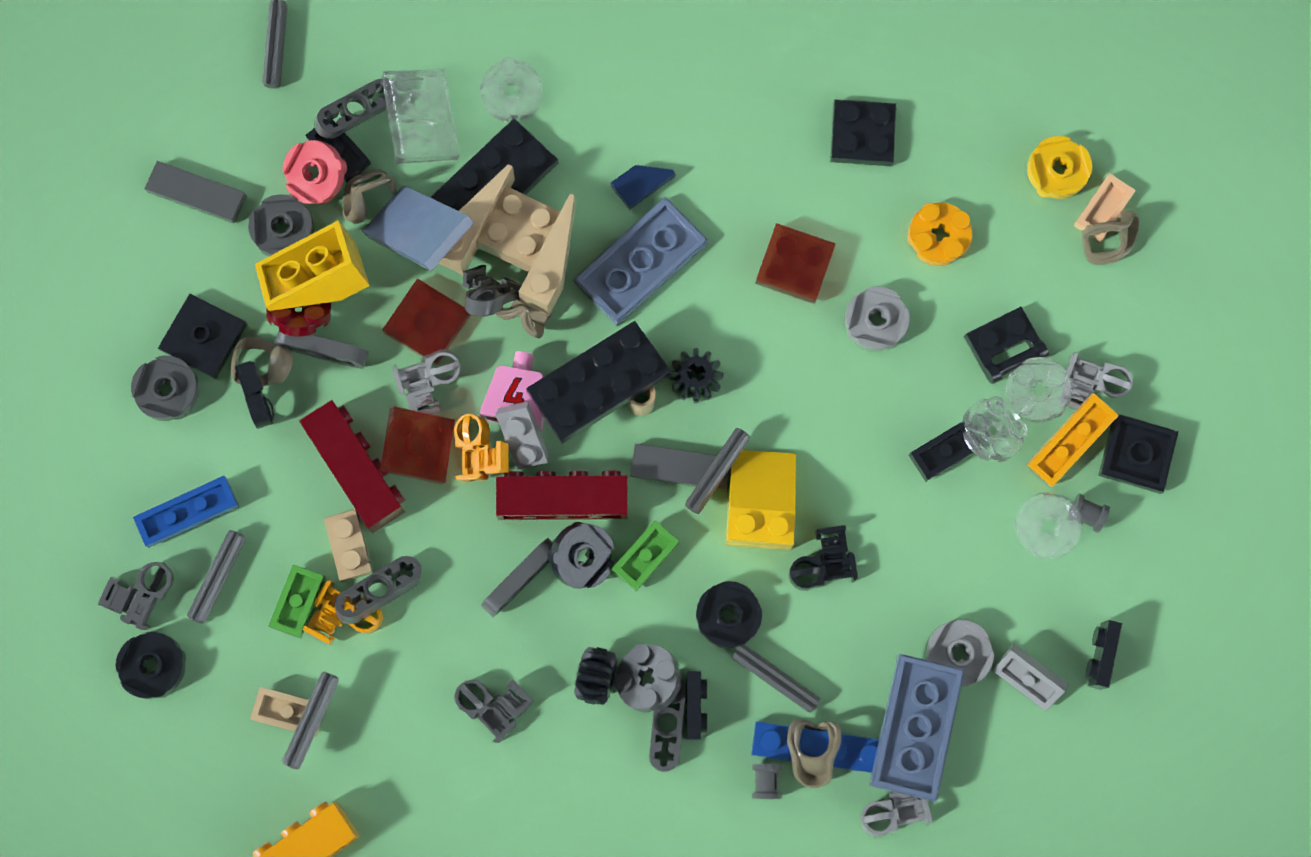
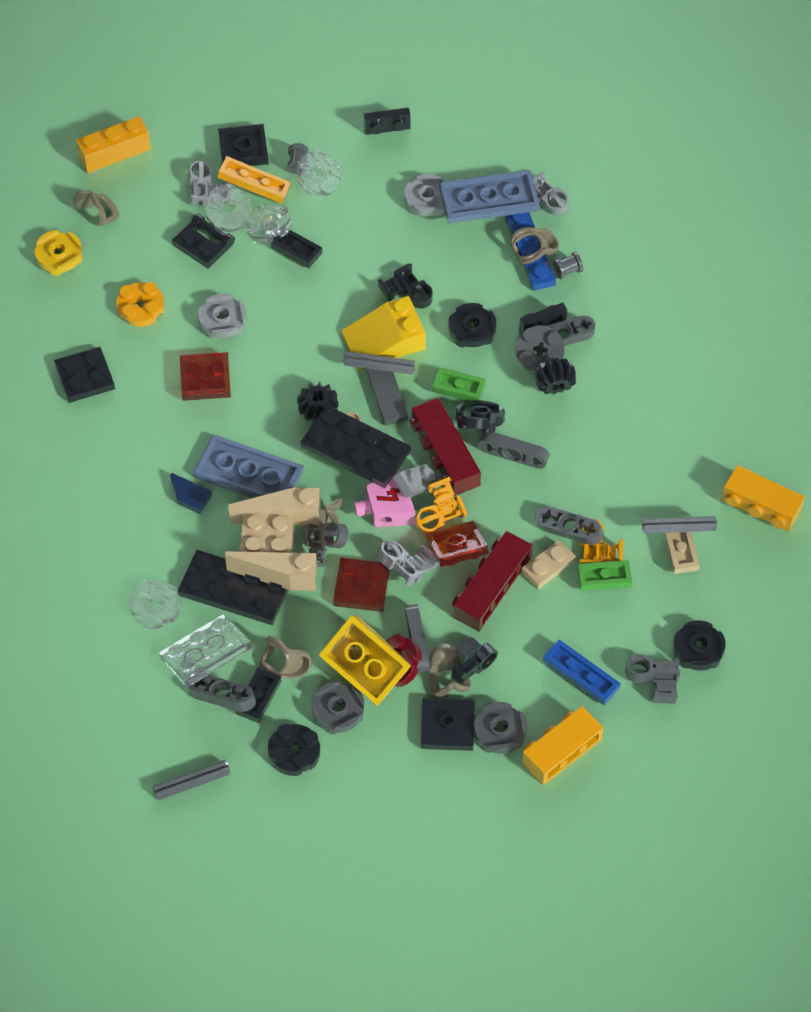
camera: 110 degrees left, 20 degrees down
(106, 444) = (562, 744): none -> light orange brick
(195, 192) = (339, 781): dark grey tile -> none
(216, 577) = (615, 634): dark grey axle -> none
(239, 158) = (301, 761): none -> black plate
(330, 177) = (298, 691): coral plate -> none
(418, 227) = (300, 596): sand blue tile -> none
(499, 711) = (610, 432): dark grey piece -> none
(776, 678) = (499, 285): dark grey axle -> none
(1030, 677) = (422, 153): light grey plate -> none
(1105, 204) = (74, 219): light nougat tile -> none
(1202, 291) = (113, 144): none -> light orange brick

